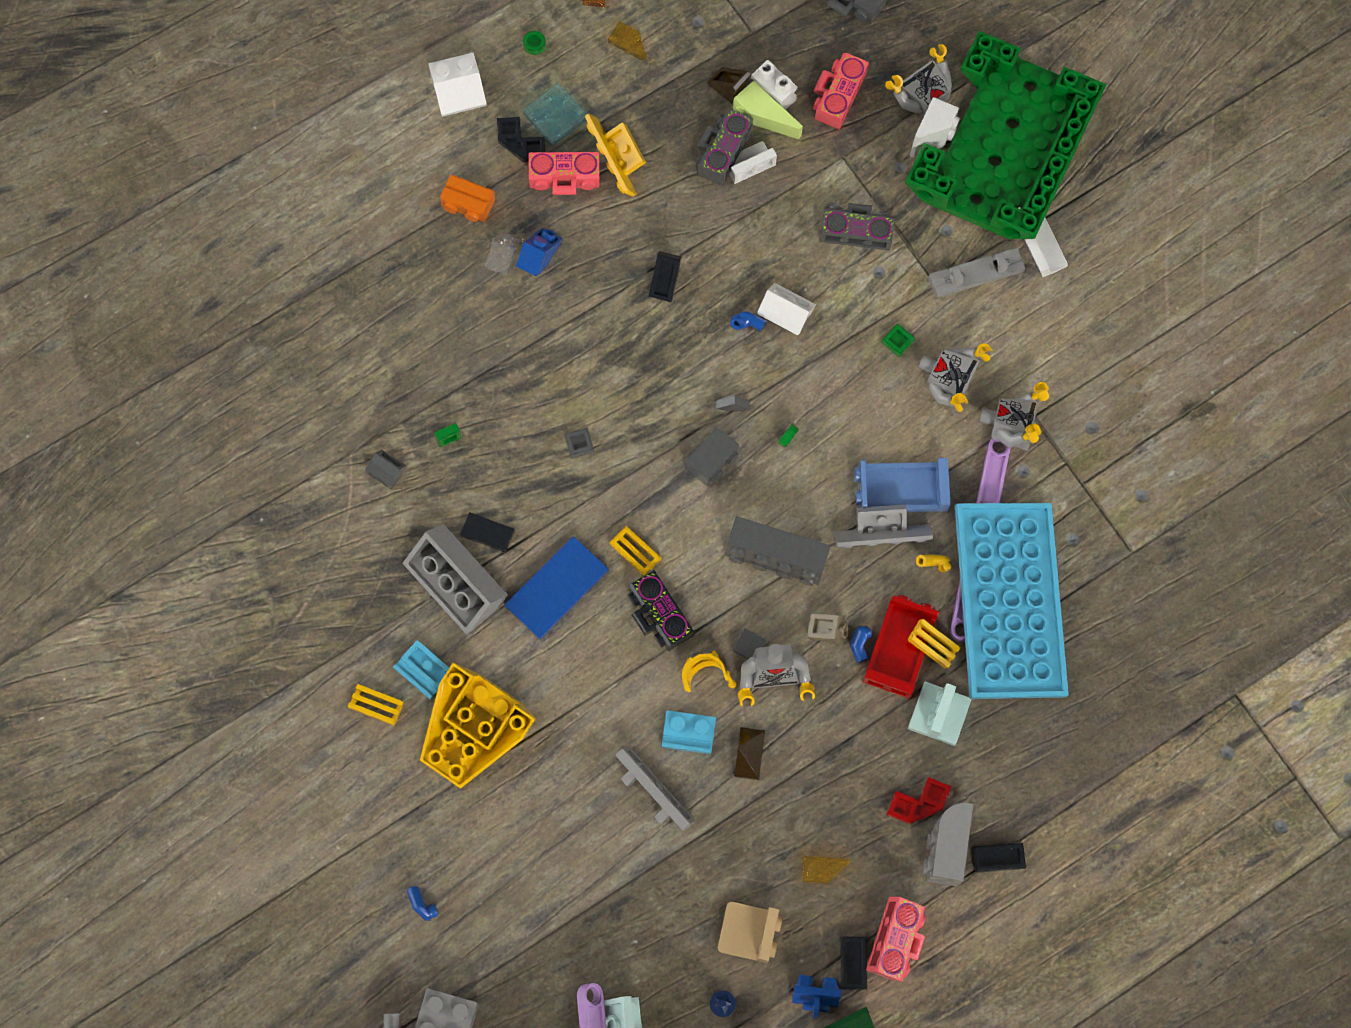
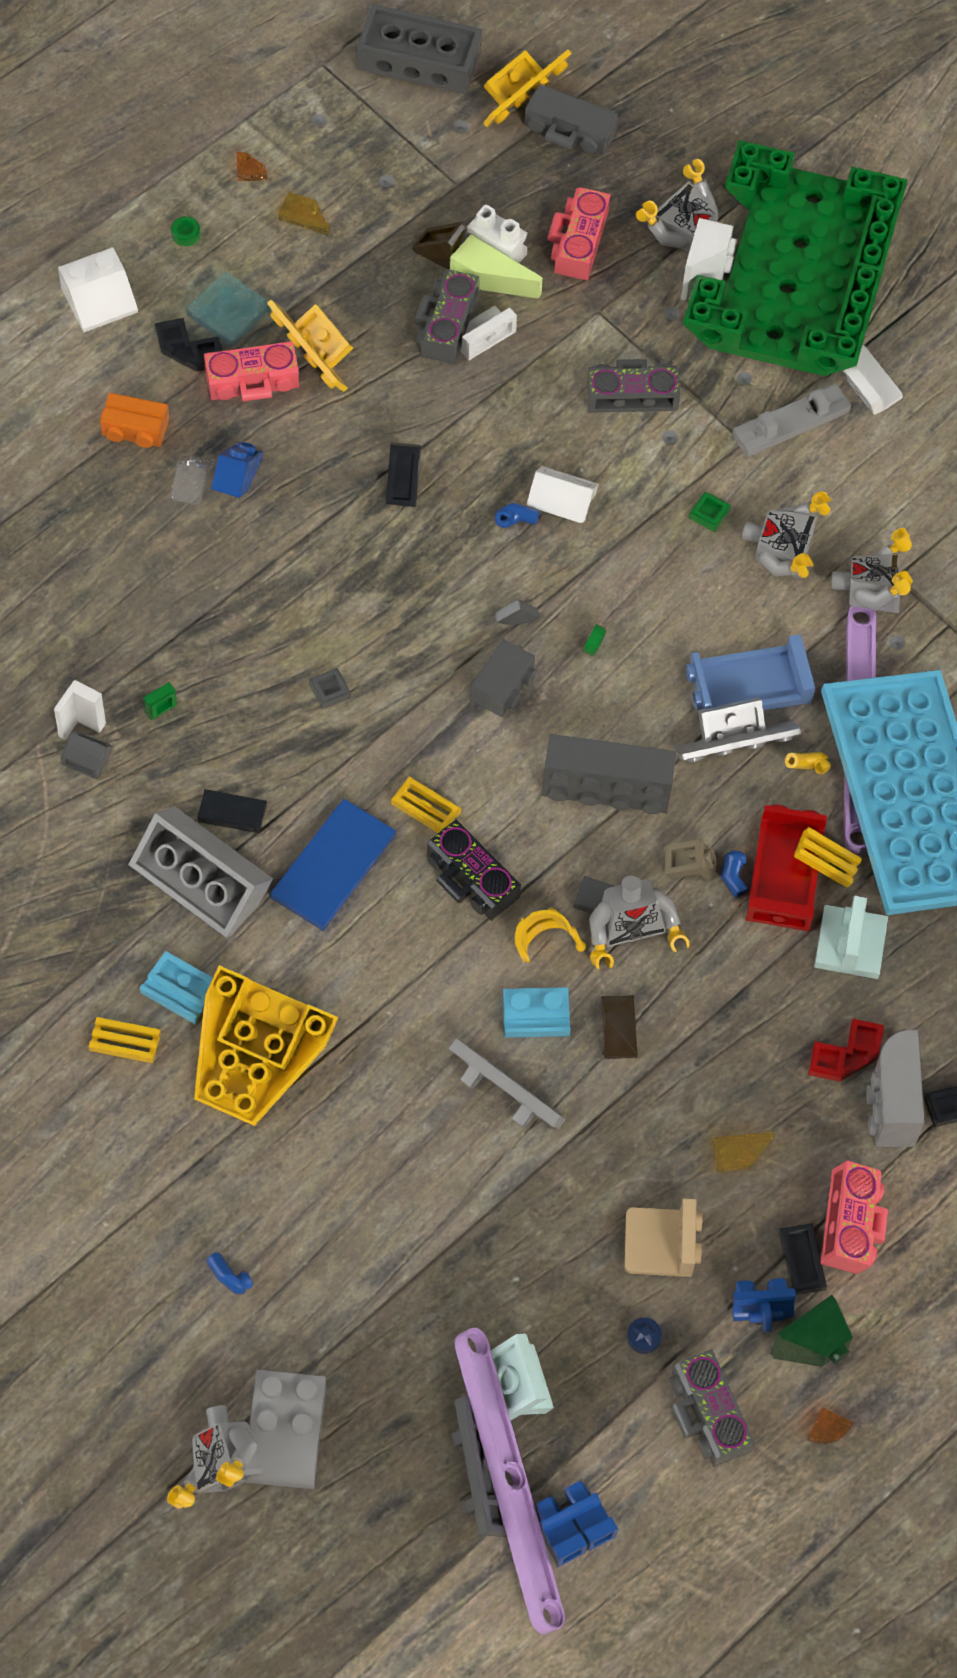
camera: 10 degrees left, 10 degrees down
(381, 431) = (79, 705): none -> white panel

